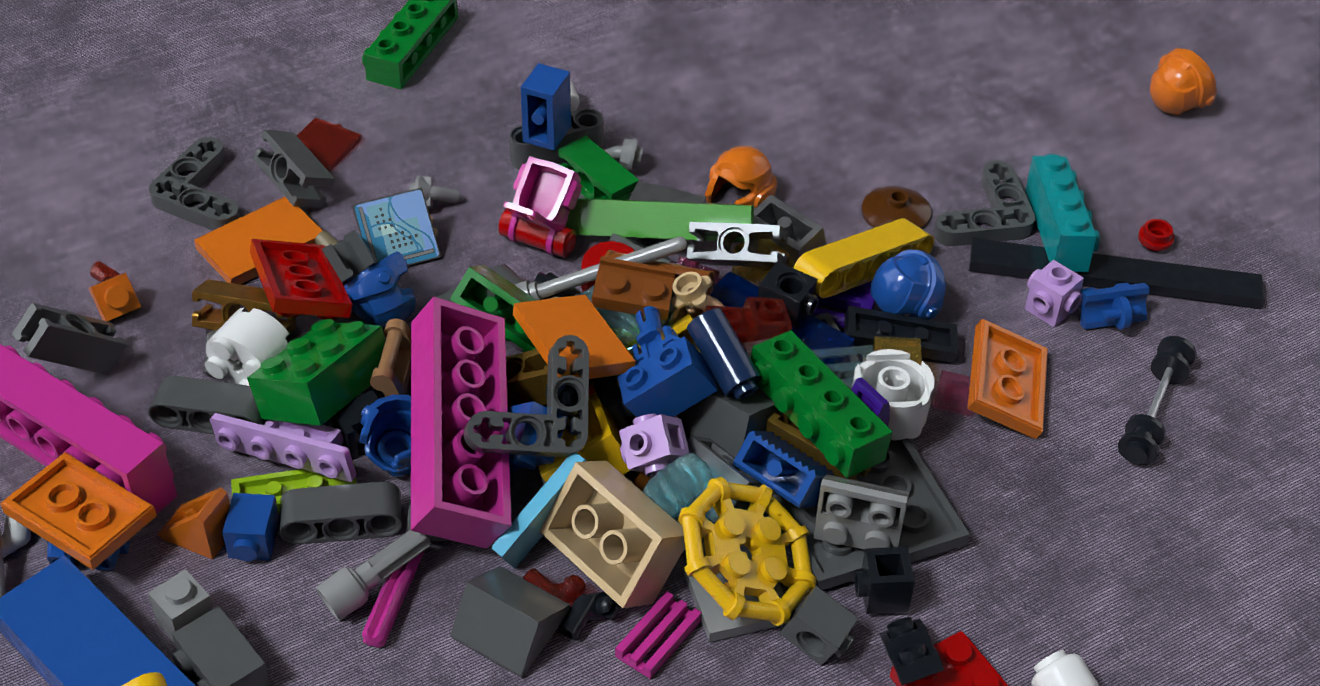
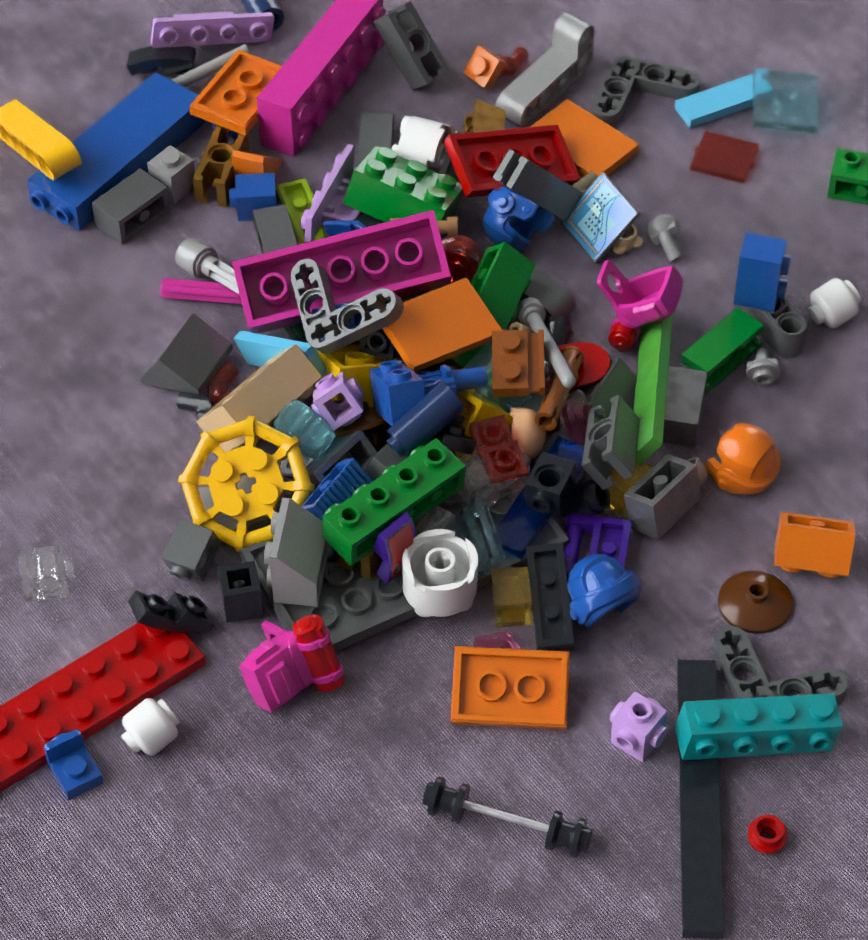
camera: 85 degrees right, 5 degrees up
(149, 241) = (552, 73): none -> light grey beam
(172, 548) = (217, 166): none -> pearl gold piece
(240, 129) = (716, 101): none -> medium azure tile
(268, 86) = (785, 101): none -> clear light blue tile
(293, 169) = (666, 137): dark grey piece -> none
(645, 625) = (179, 446): dark pink tile -> none
(690, 290) = (522, 402): tan plate -> none
(851, 150) = (814, 544): none -> orange brick
(857, 257) = (621, 536): yellow beam -> none
(989, 539) = (292, 662): none -> dark pink piece
(1114, 305) = (632, 782): blue hips -> none

